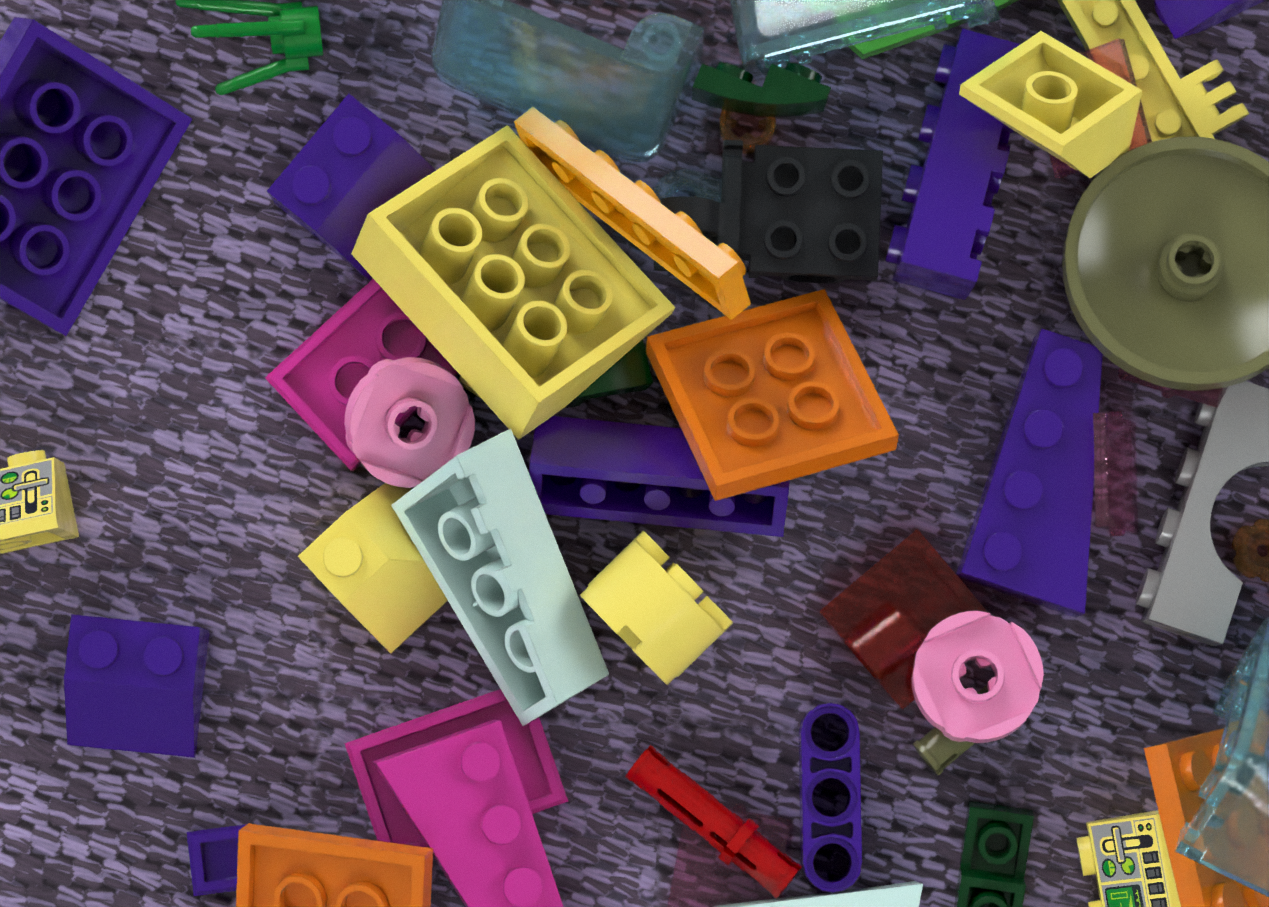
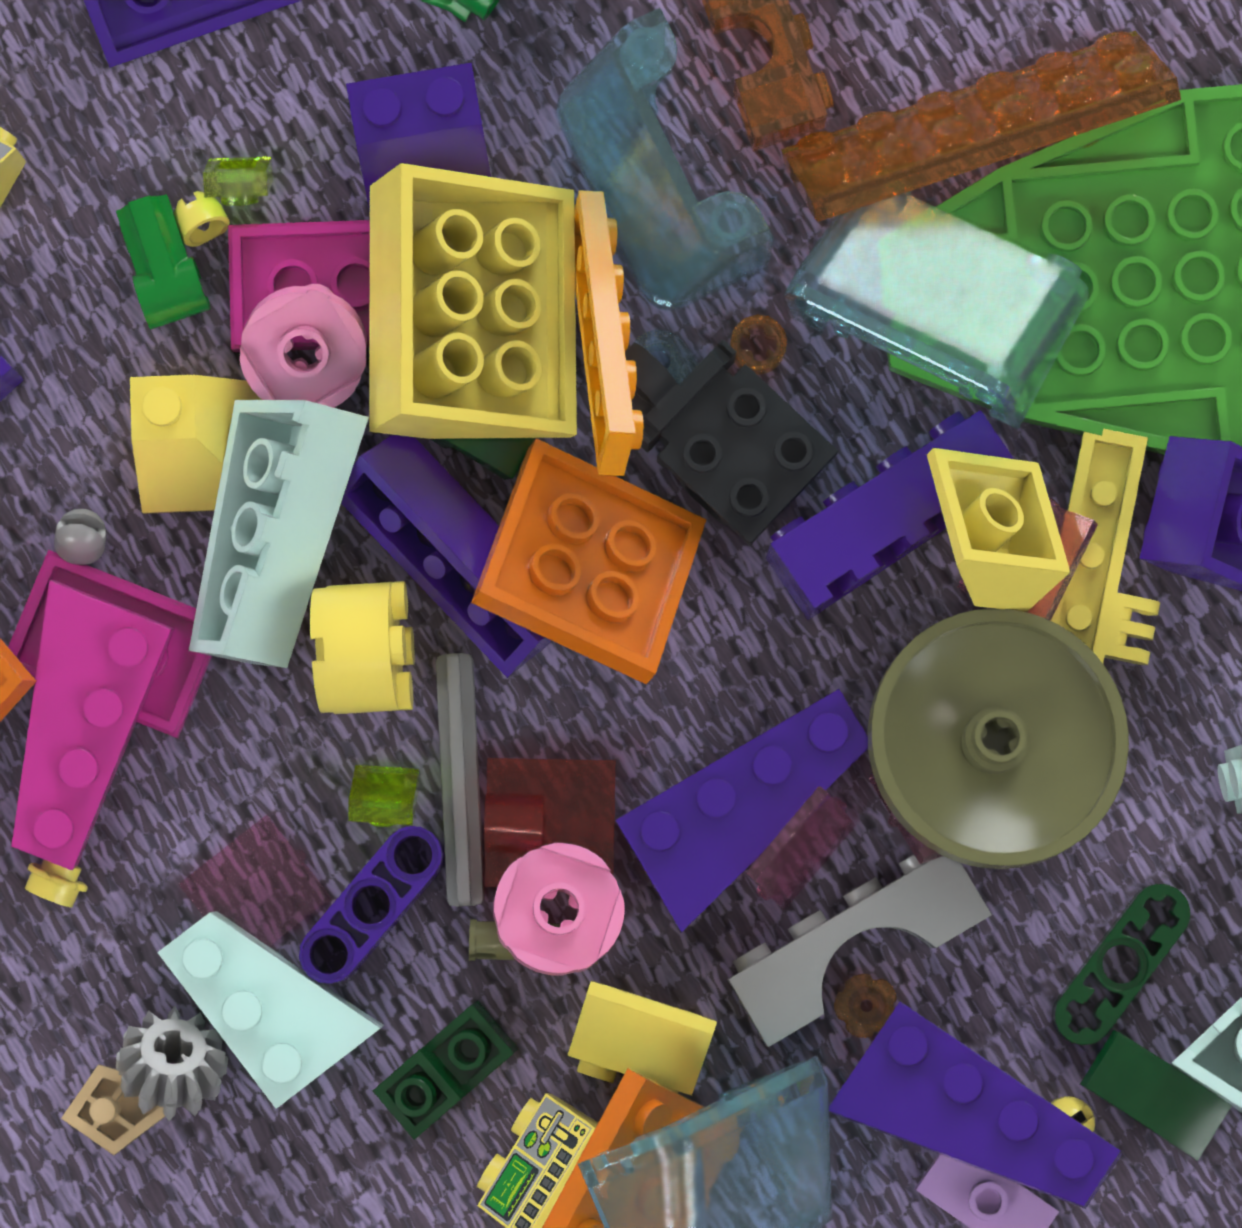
camera: 40 degrees right, 0 degrees up
(234, 391) = (195, 214): none -> light yellow hinge
(243, 335) = (238, 179): none -> clear neon green plate
(250, 455) = (165, 274): none -> green piece
(360, 712) = (80, 537): none -> light grey hinge
(709, 818) = (271, 860): red pin -> none
(765, 707) = (383, 795): none -> clear neon green plate
(783, 93) = (797, 340): dark green slope -> none
(811, 645) = (460, 780): none -> light grey axle
(1120, 720) = (640, 1034): none -> light yellow slope

